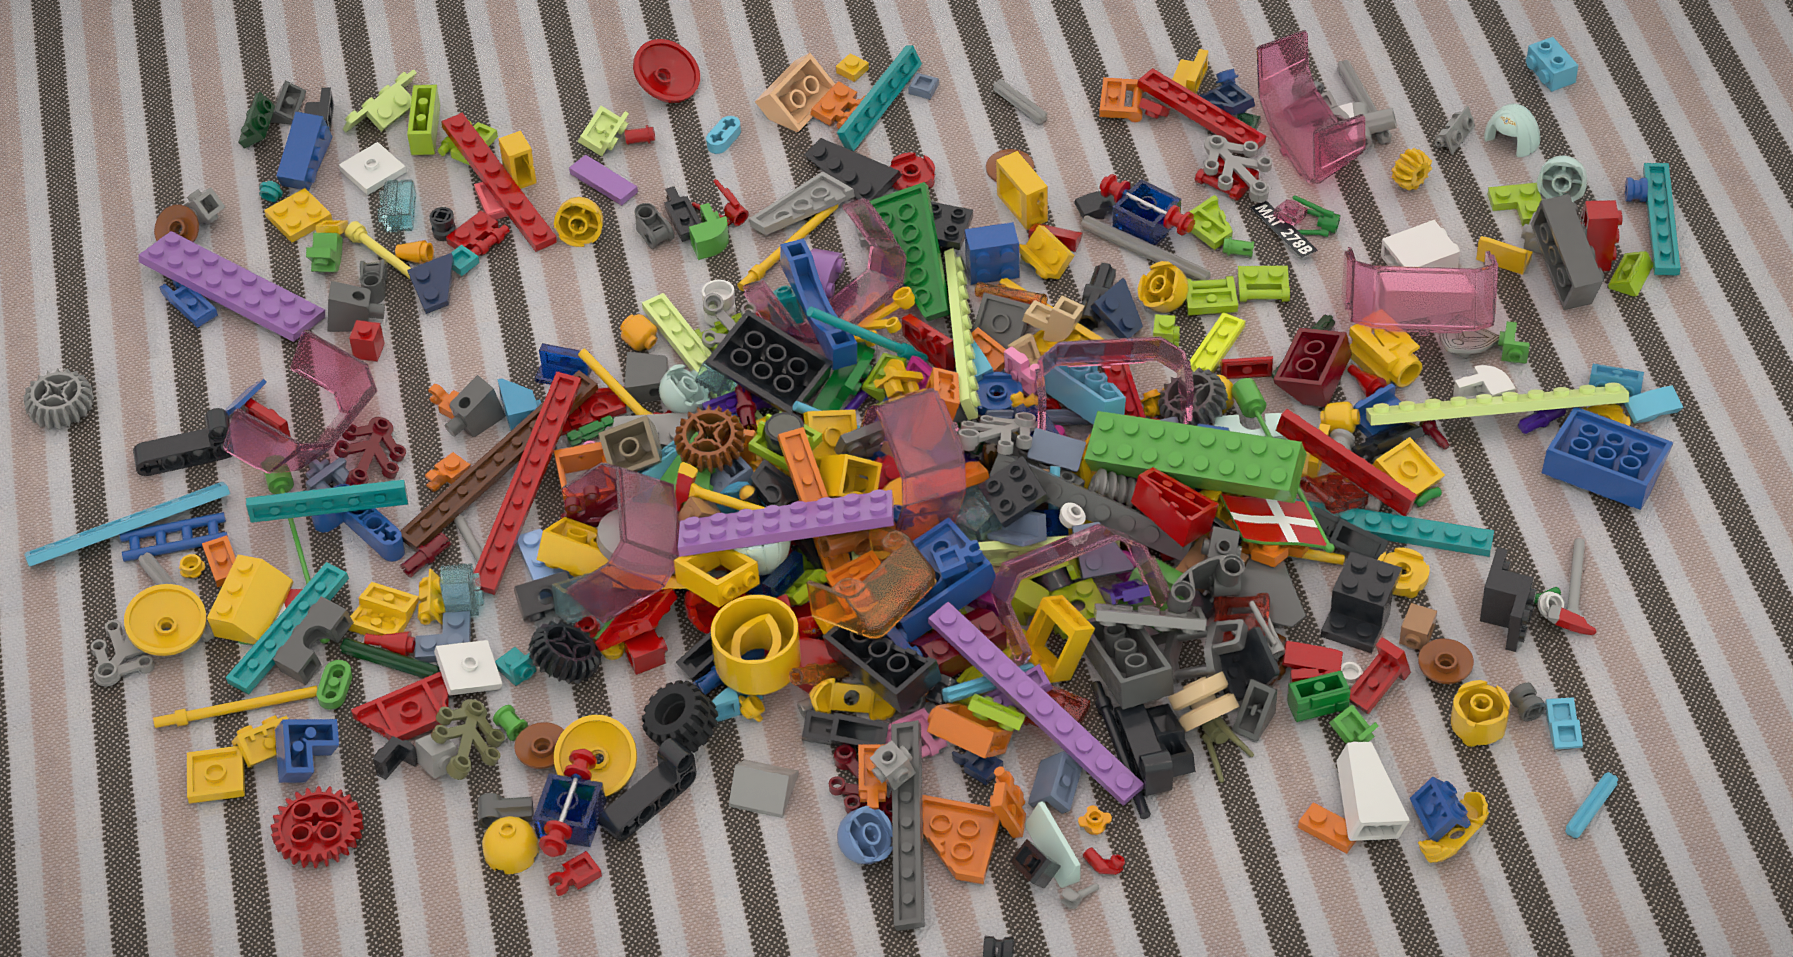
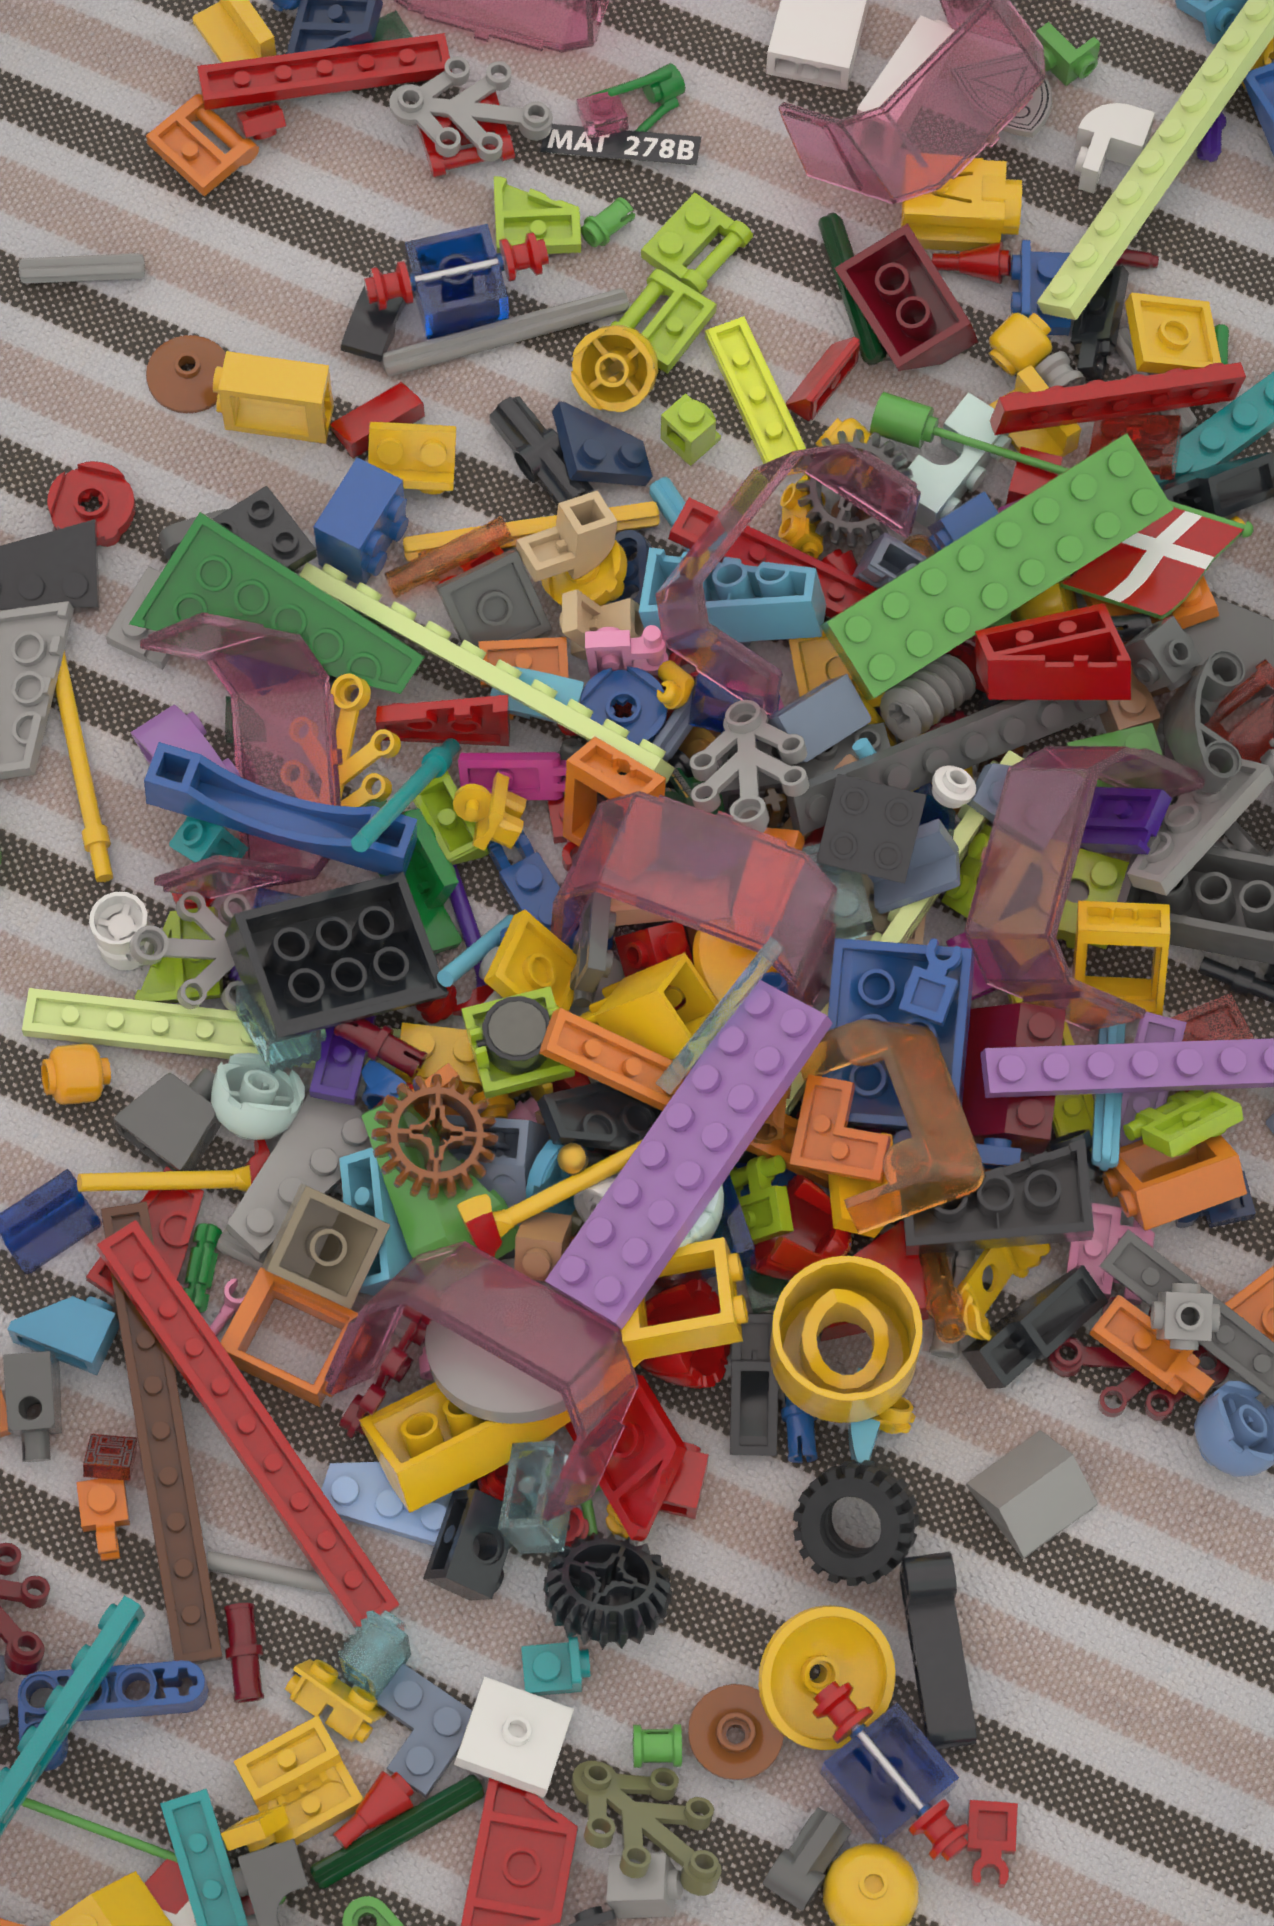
camera: 55 degrees left, 20 degrees up
(345, 601) = (256, 1830): none -> yellow plate
(471, 452) = (110, 1457): none -> clear red tile
(859, 487) = (720, 1015): none -> clear light blue bar

